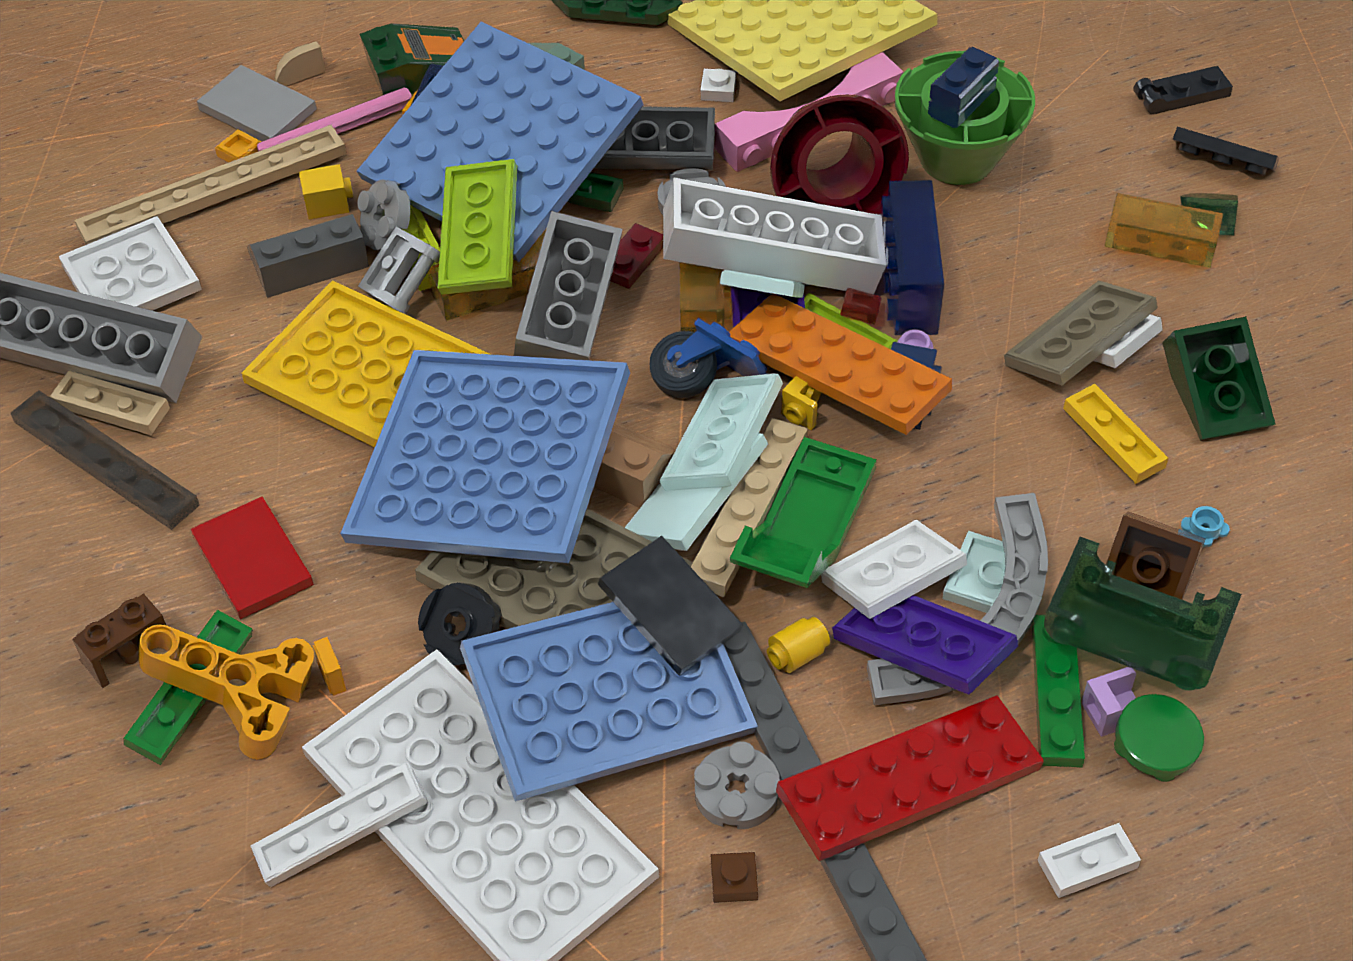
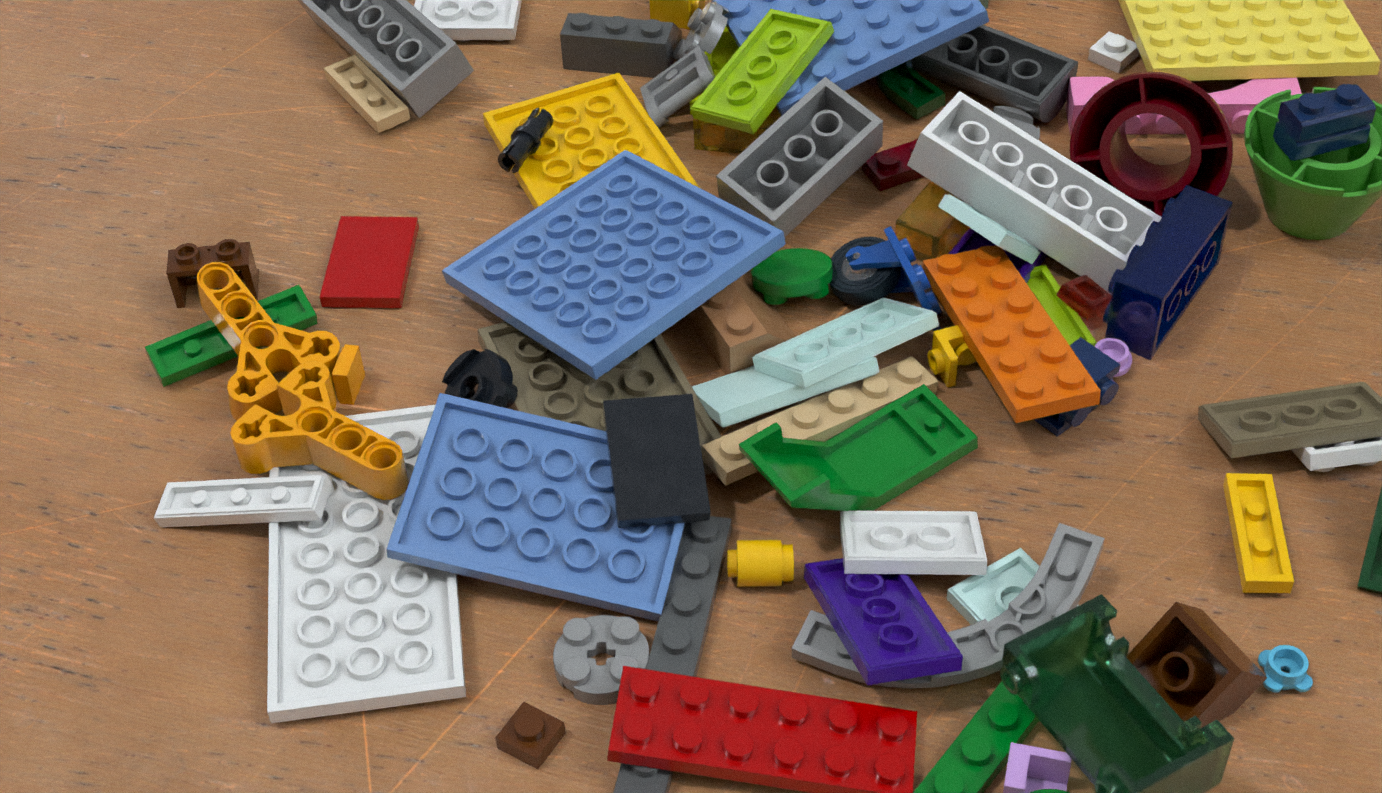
camera: 35 degrees right, 5 degrees down
(105, 459) = (326, 136): clear smoke plate -> none
(309, 381) = (525, 140): none -> black pin
(334, 708) = (318, 437): none -> light orange beam
(642, 395) = (792, 275): none -> green tile

